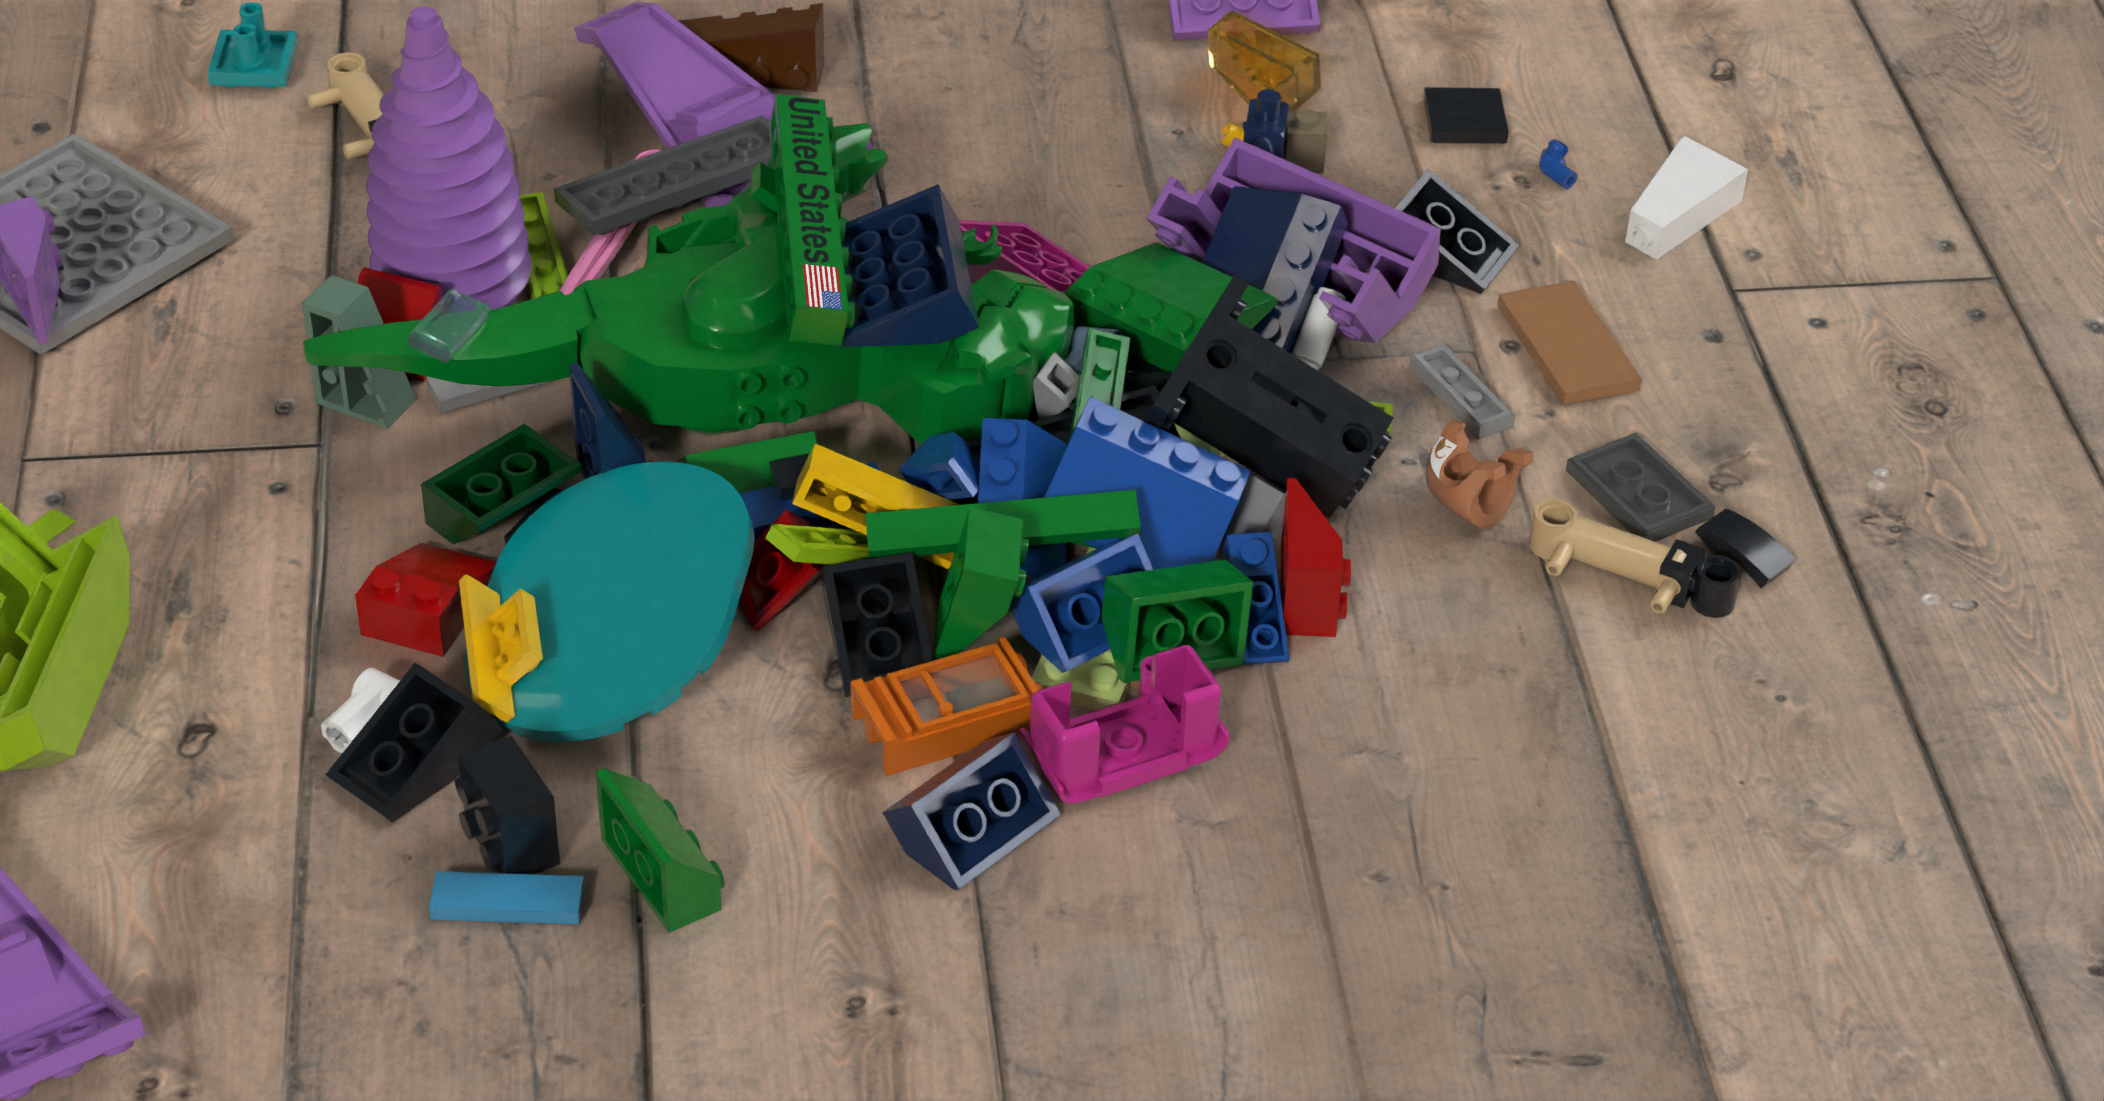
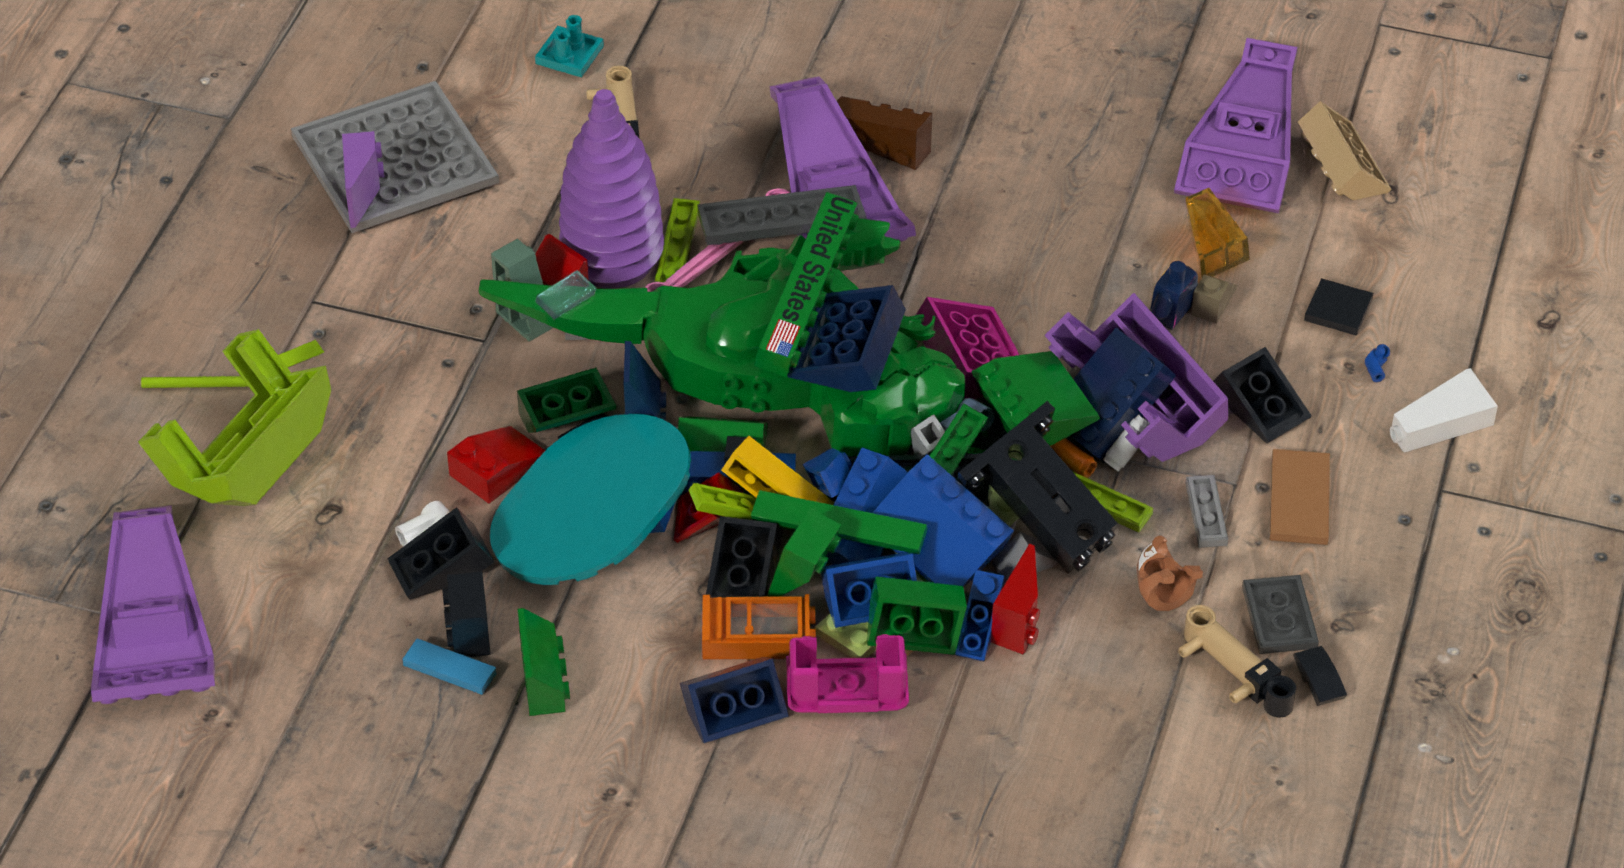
camera: 25 degrees right, 5 degrees up
(499, 643) = (511, 508): yellow bracket -> none

